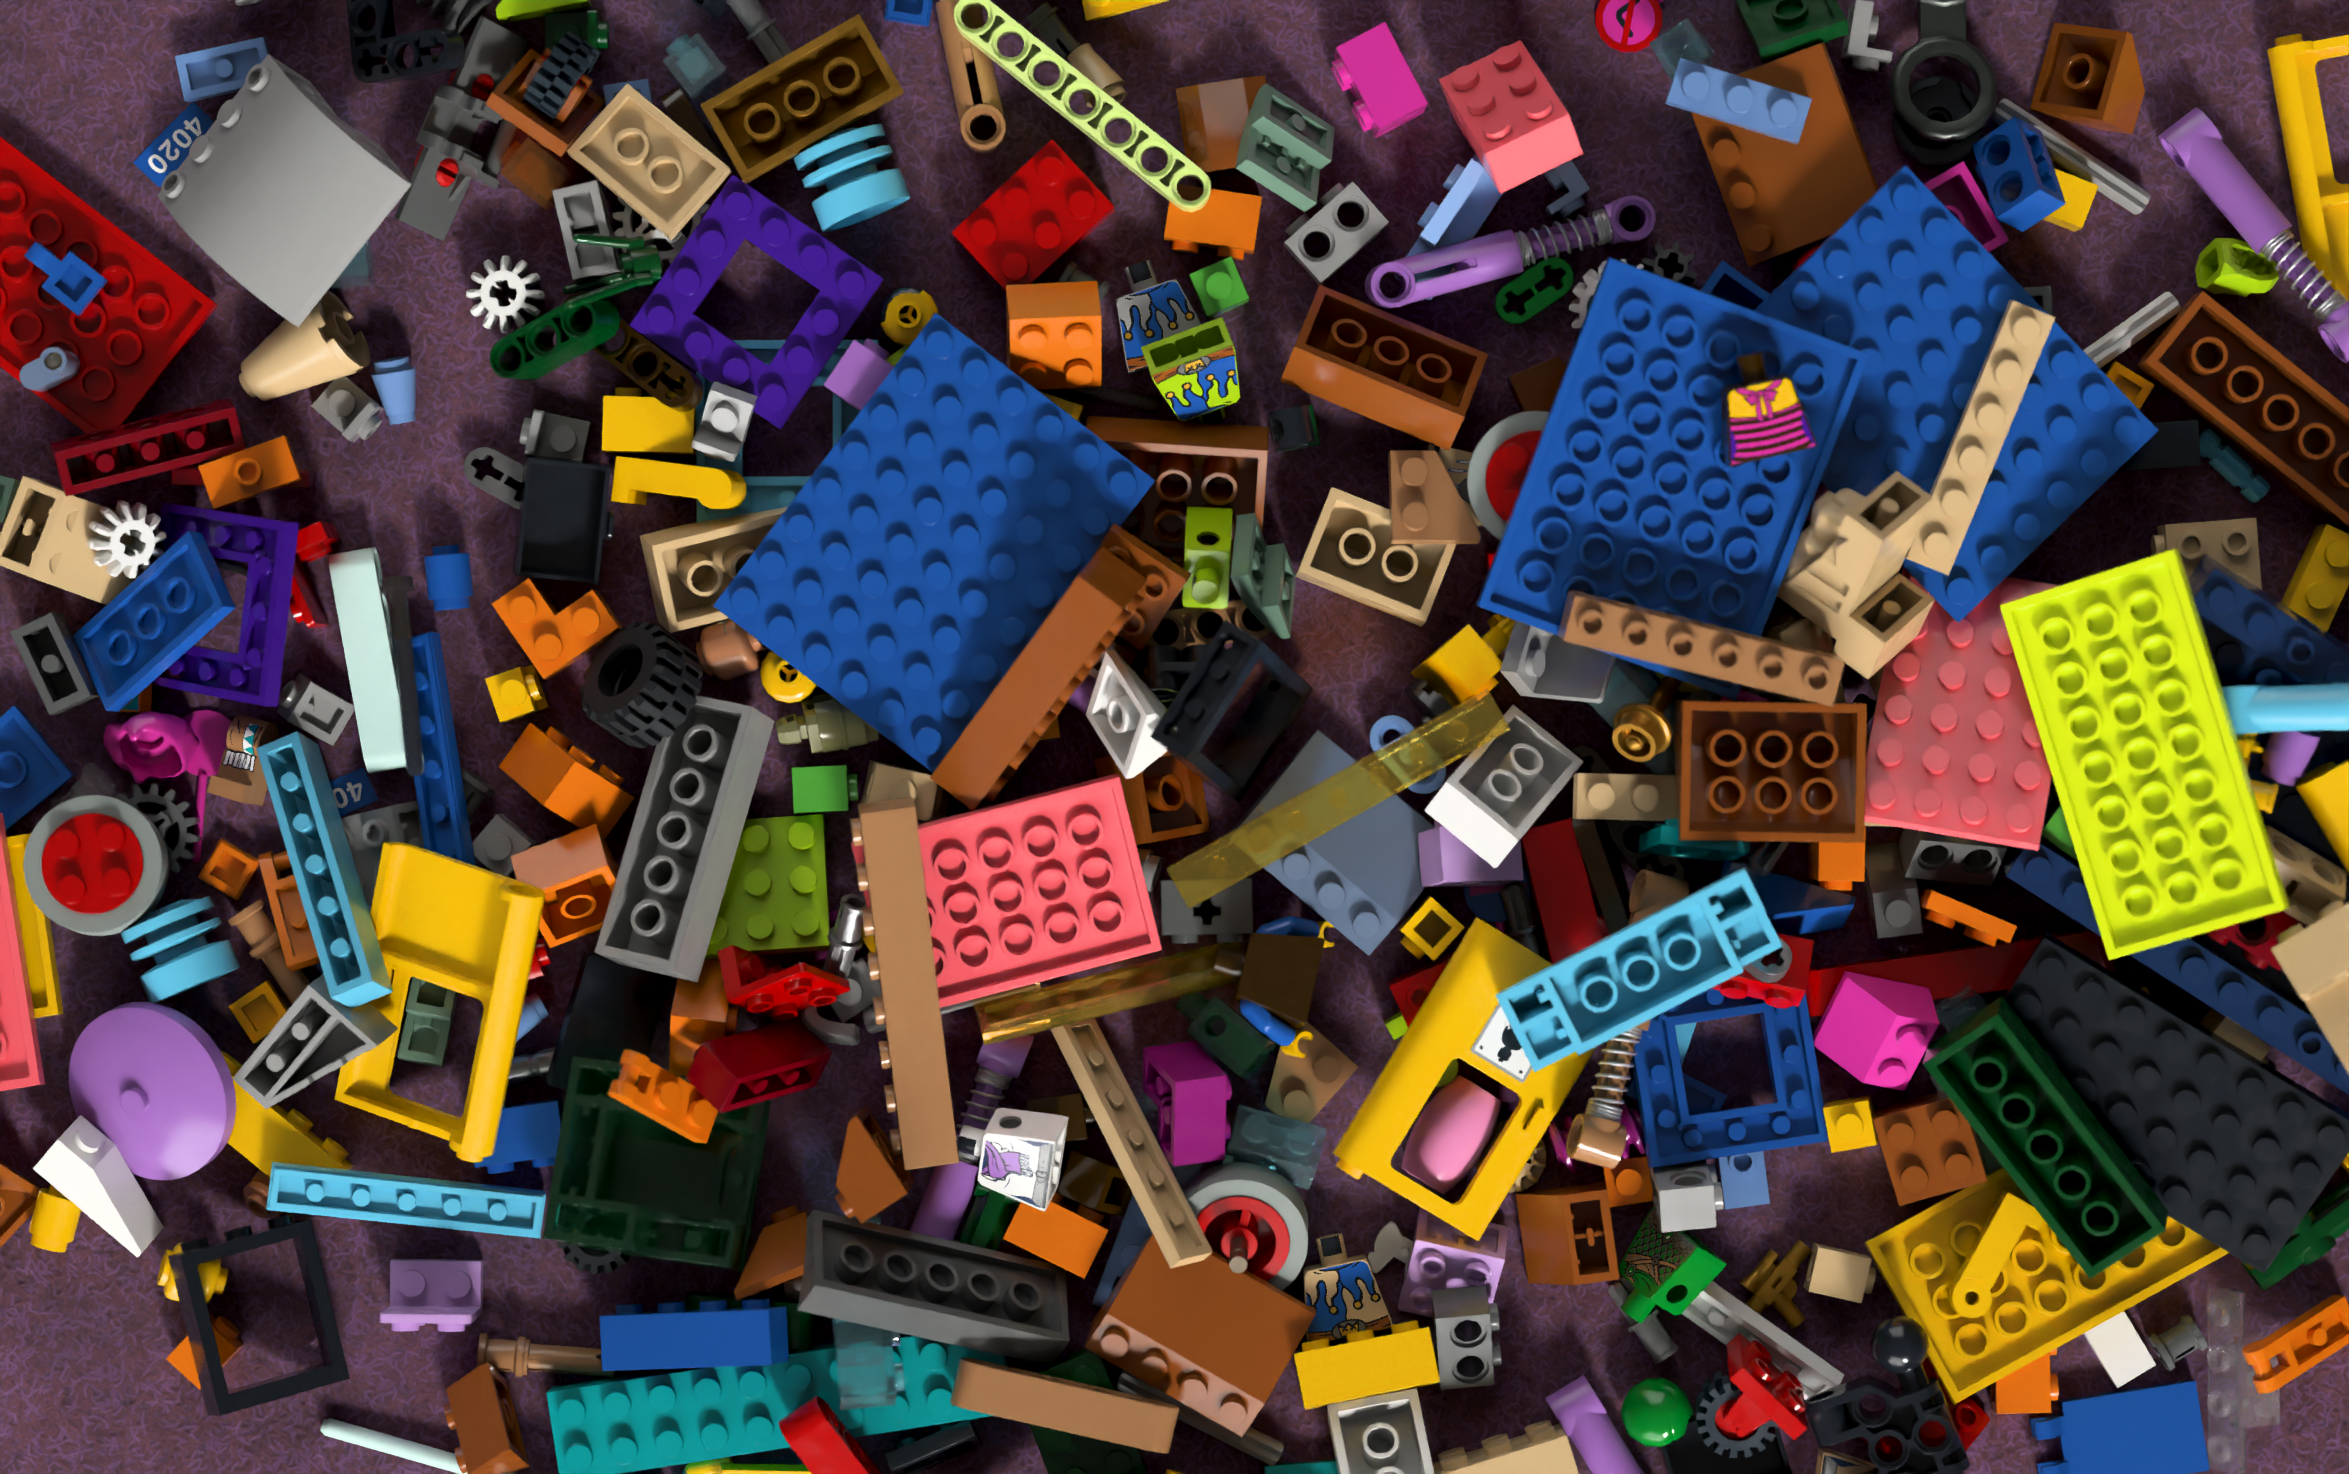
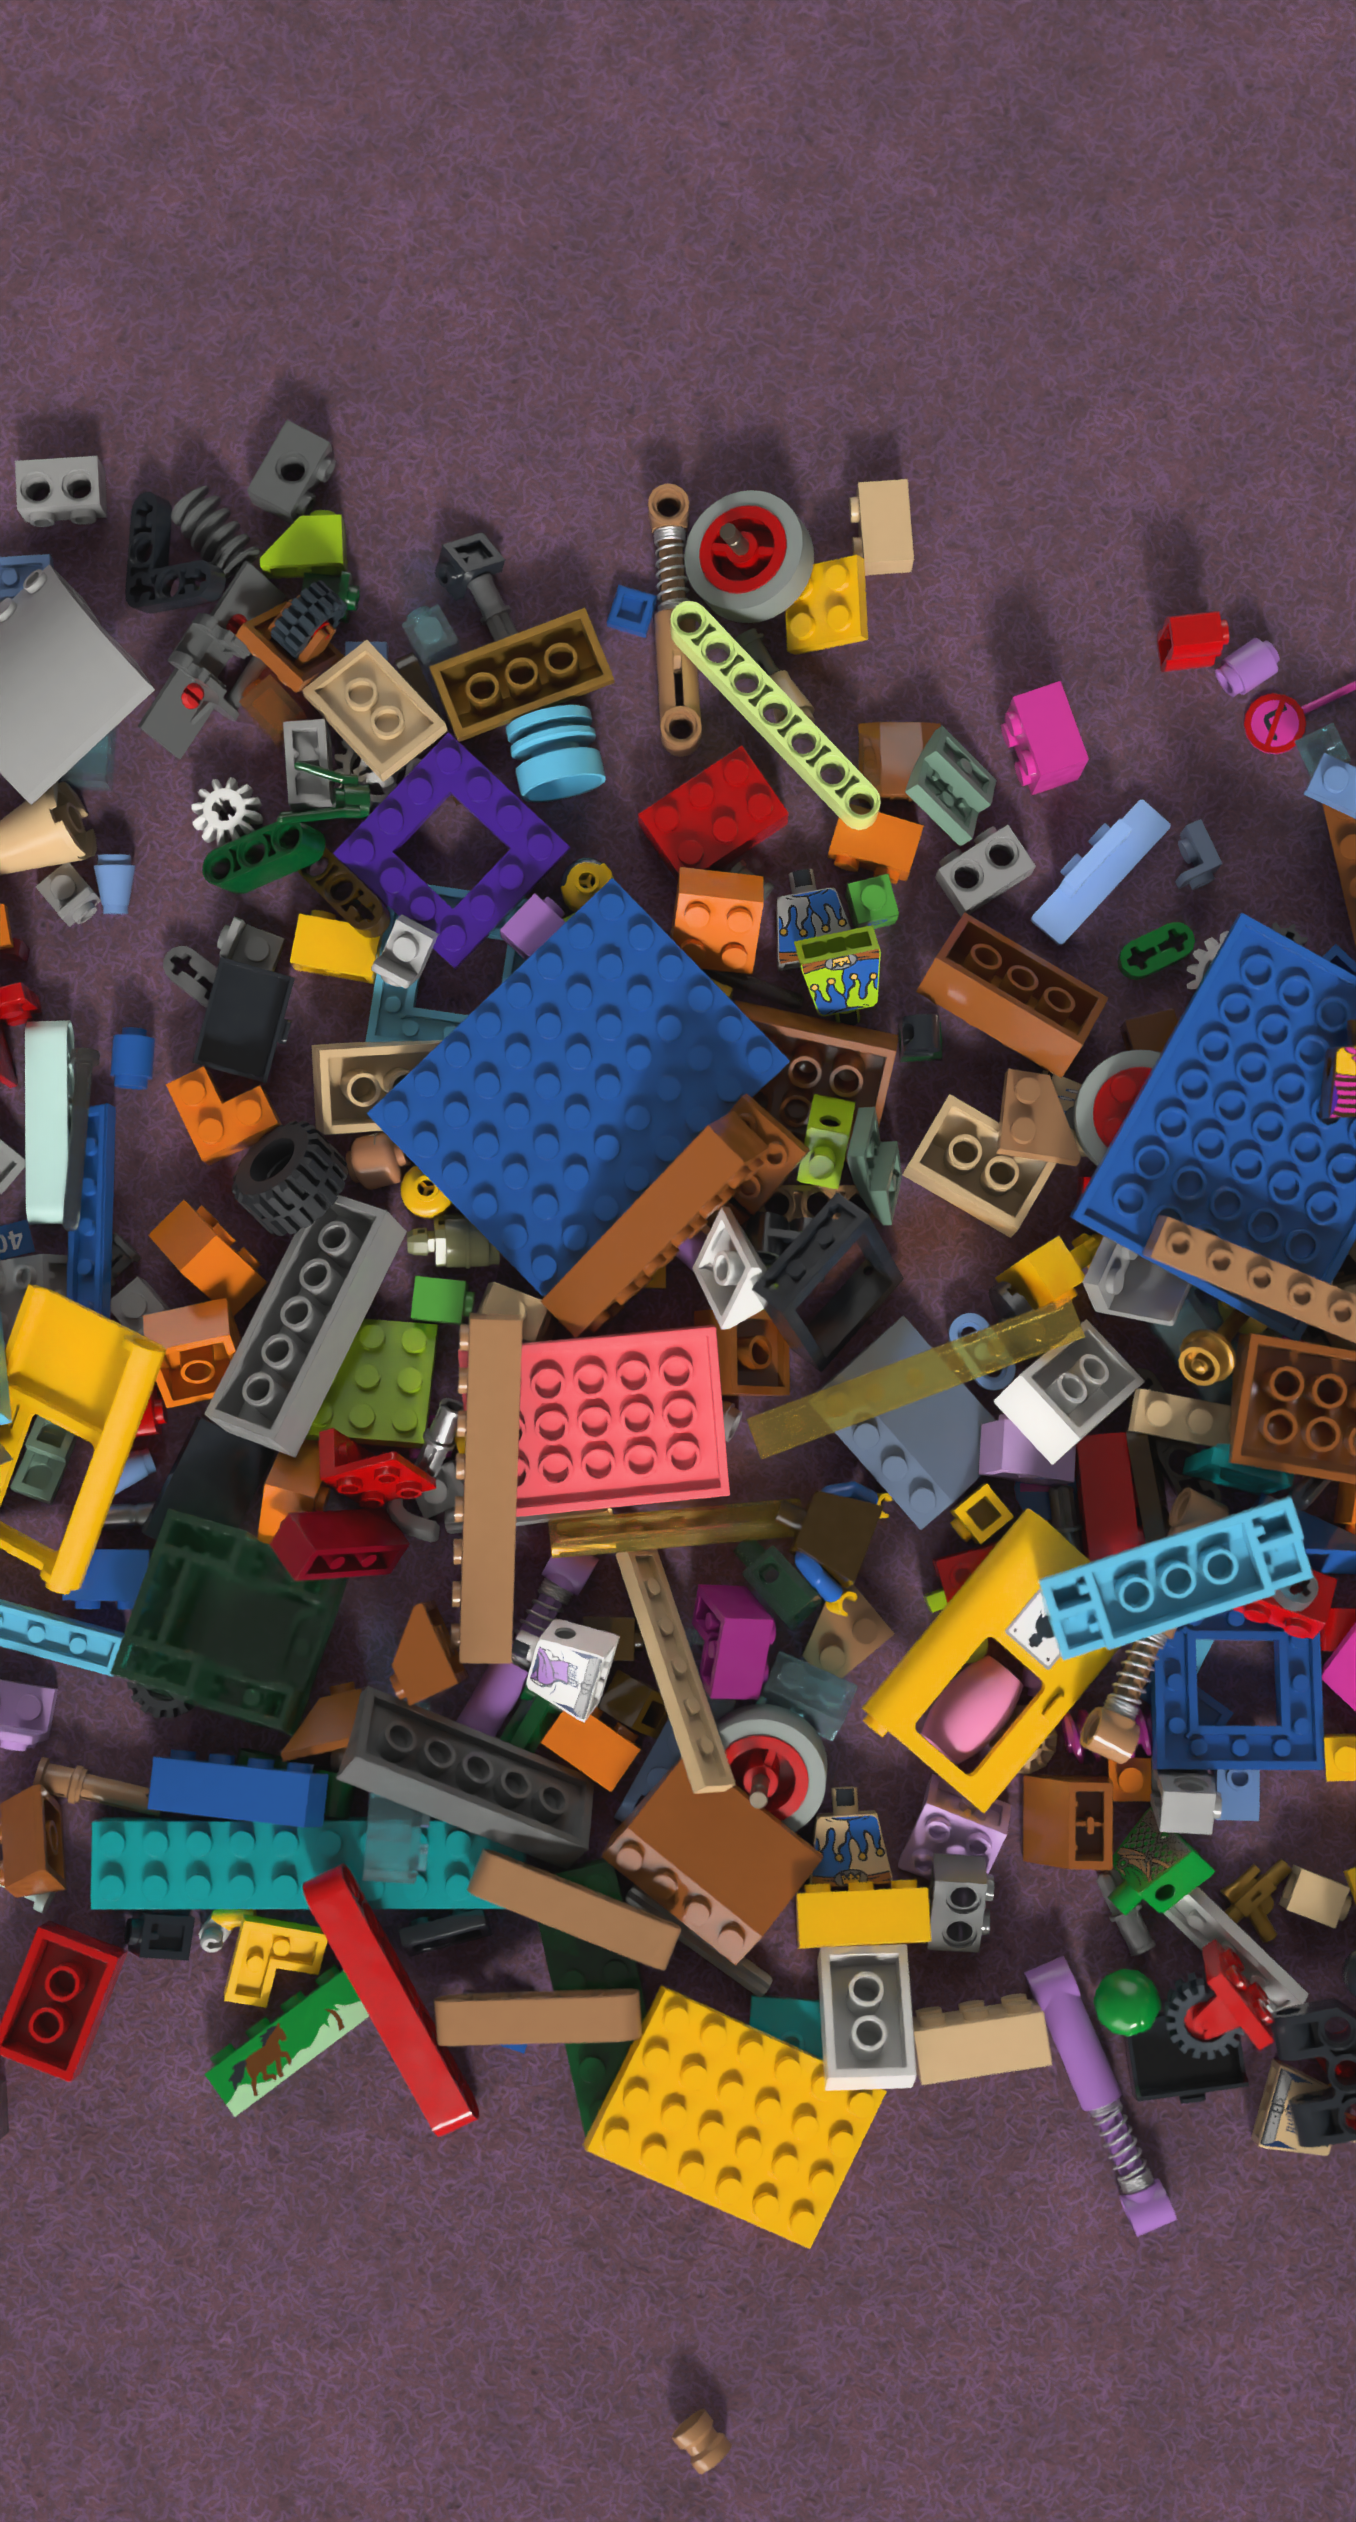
camera: 10 degrees right, 5 degrees down
(516, 693) = (175, 1171): yellow brick -> none
(663, 1097) = (244, 1558): orange plate -> none
(711, 486) = (321, 993): yellow leg -> none
(1229, 925) = (795, 1484): dark grey brick -> none
(1388, 1245) = (897, 1805): white piece -> none
(1506, 253) = (1136, 910): medium lavender piece -> none
(1510, 116) = (1161, 785): coral brick -> none

